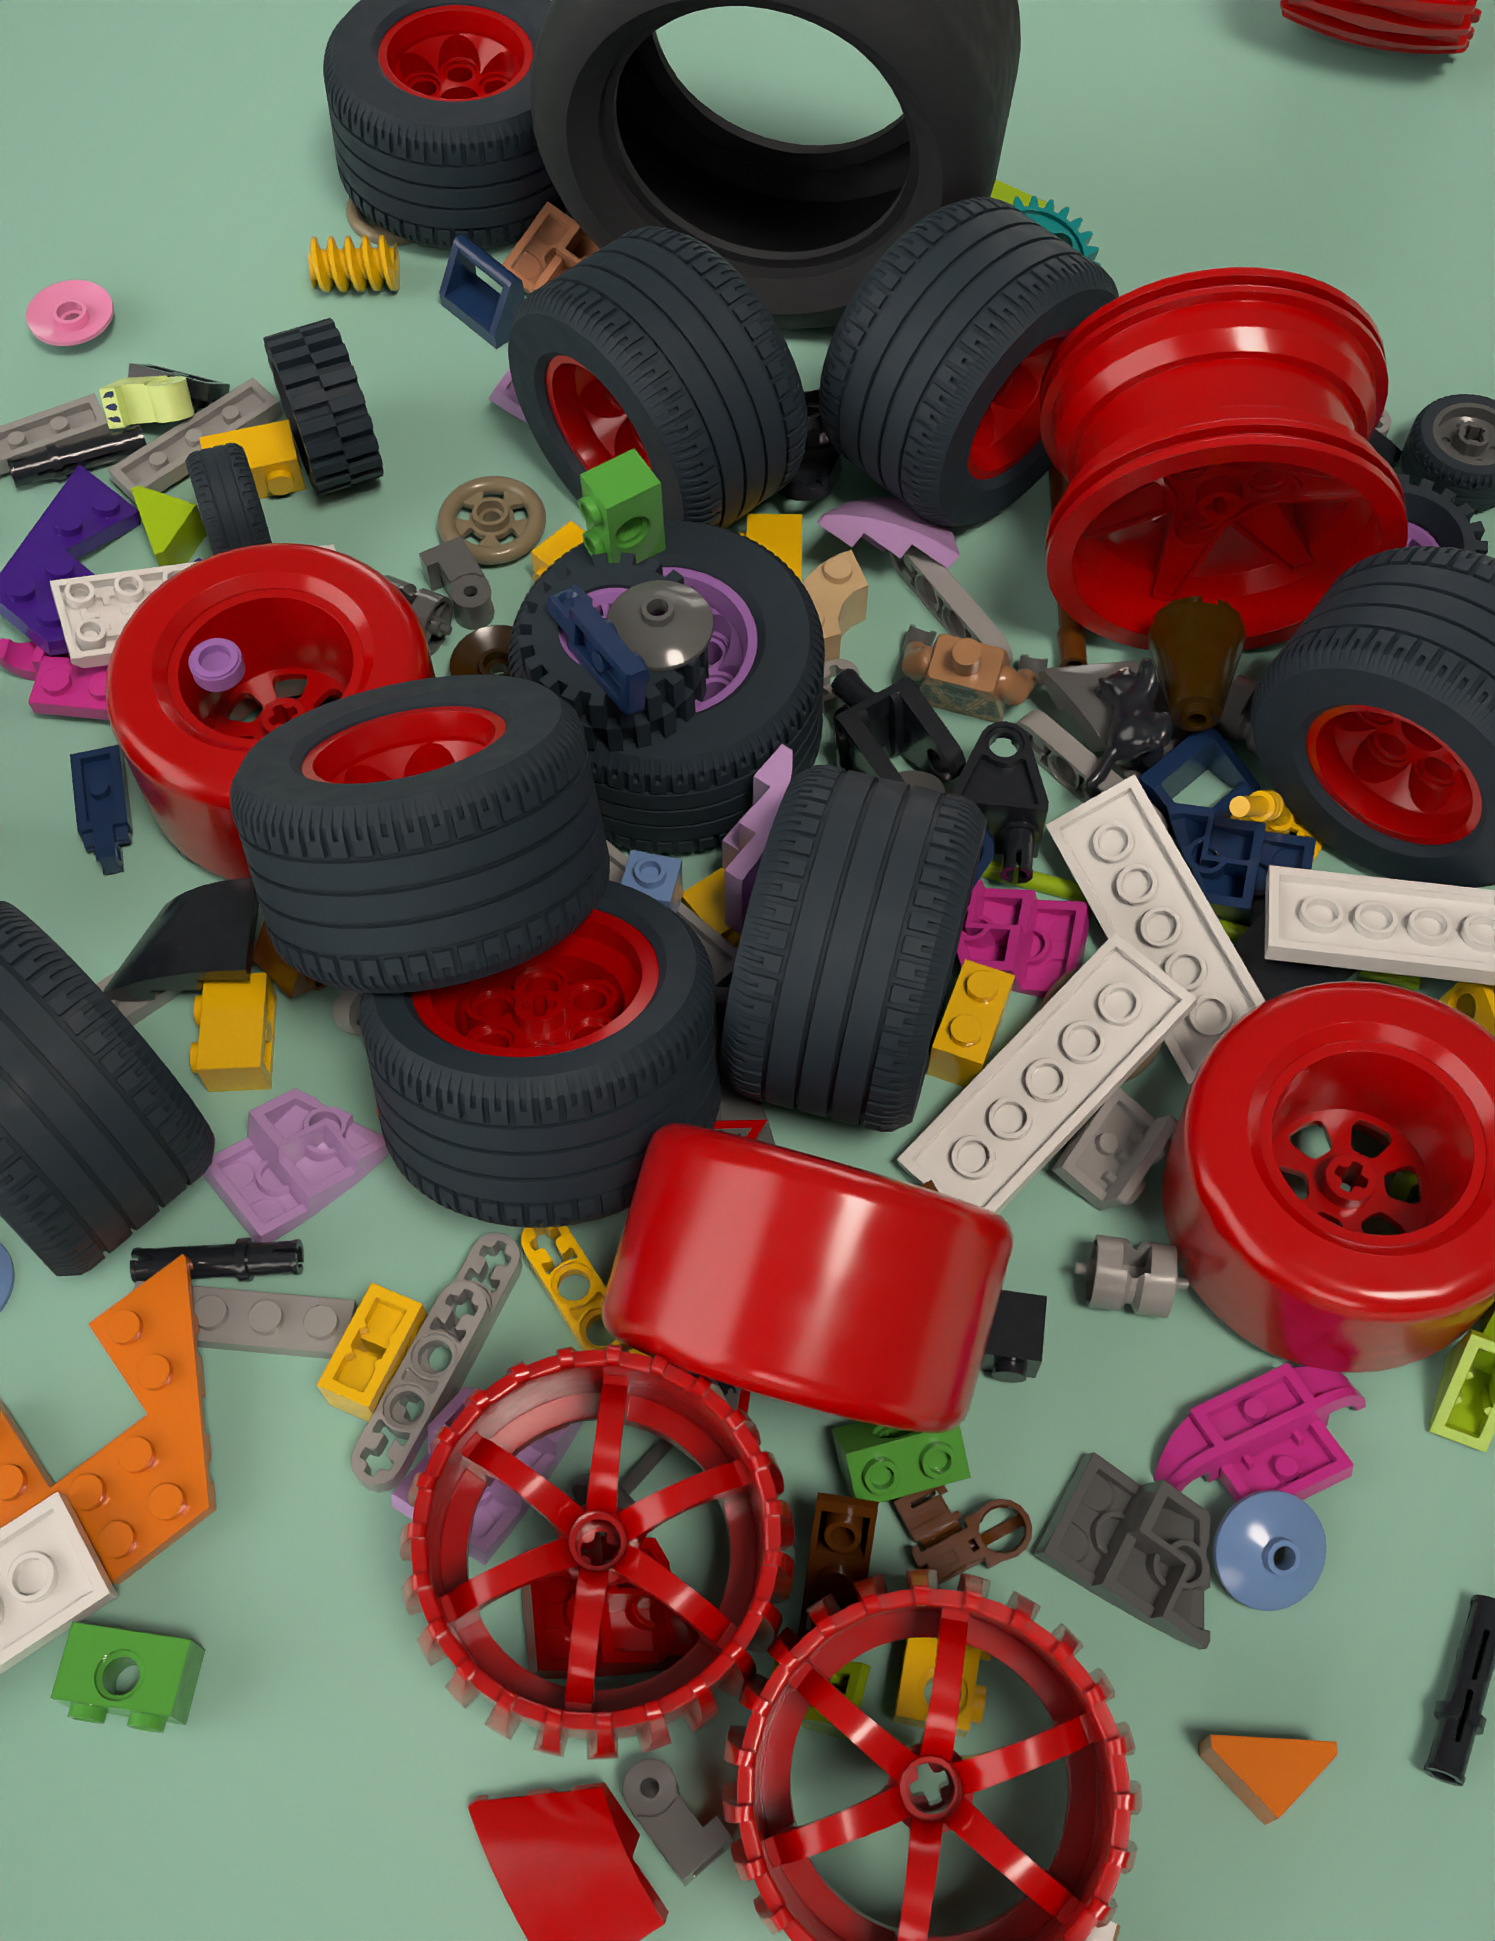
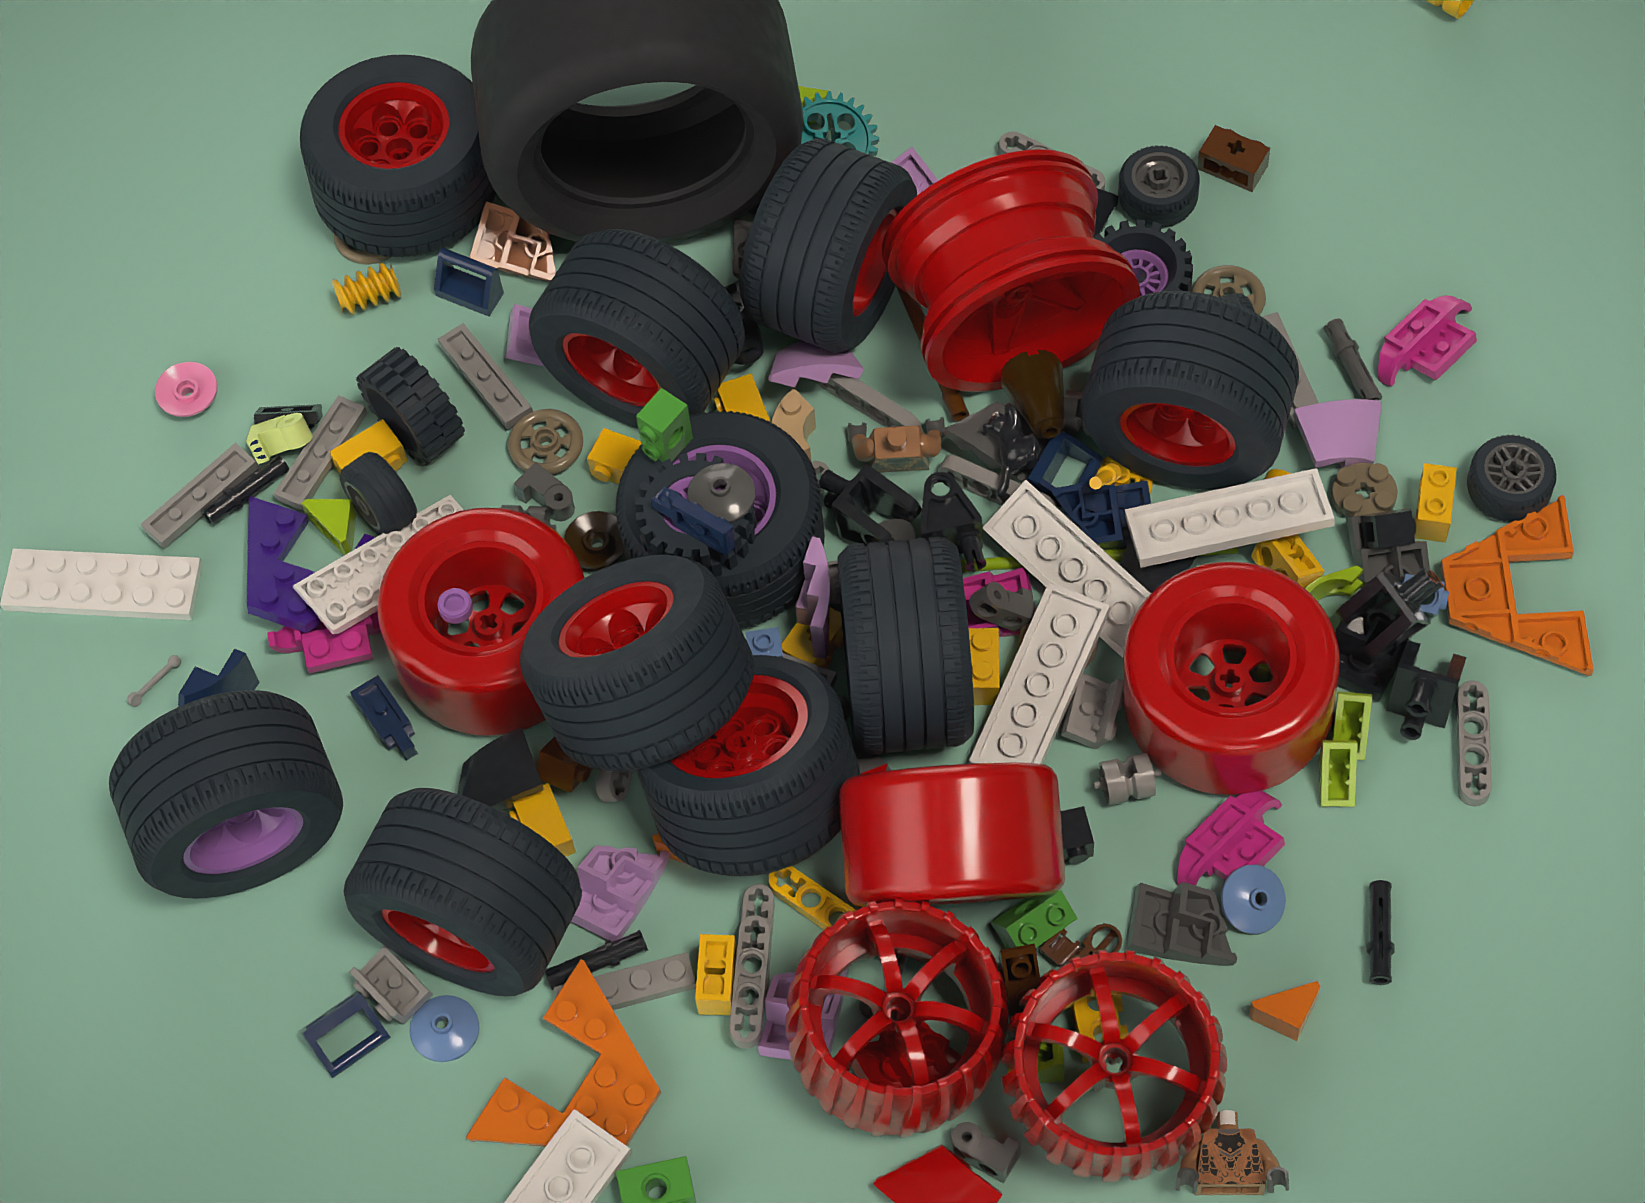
camera: 15 degrees left, 0 degrees up
(452, 413) = (484, 375): none -> light grey plate
(1033, 946) = (1003, 606): none -> dark grey leg

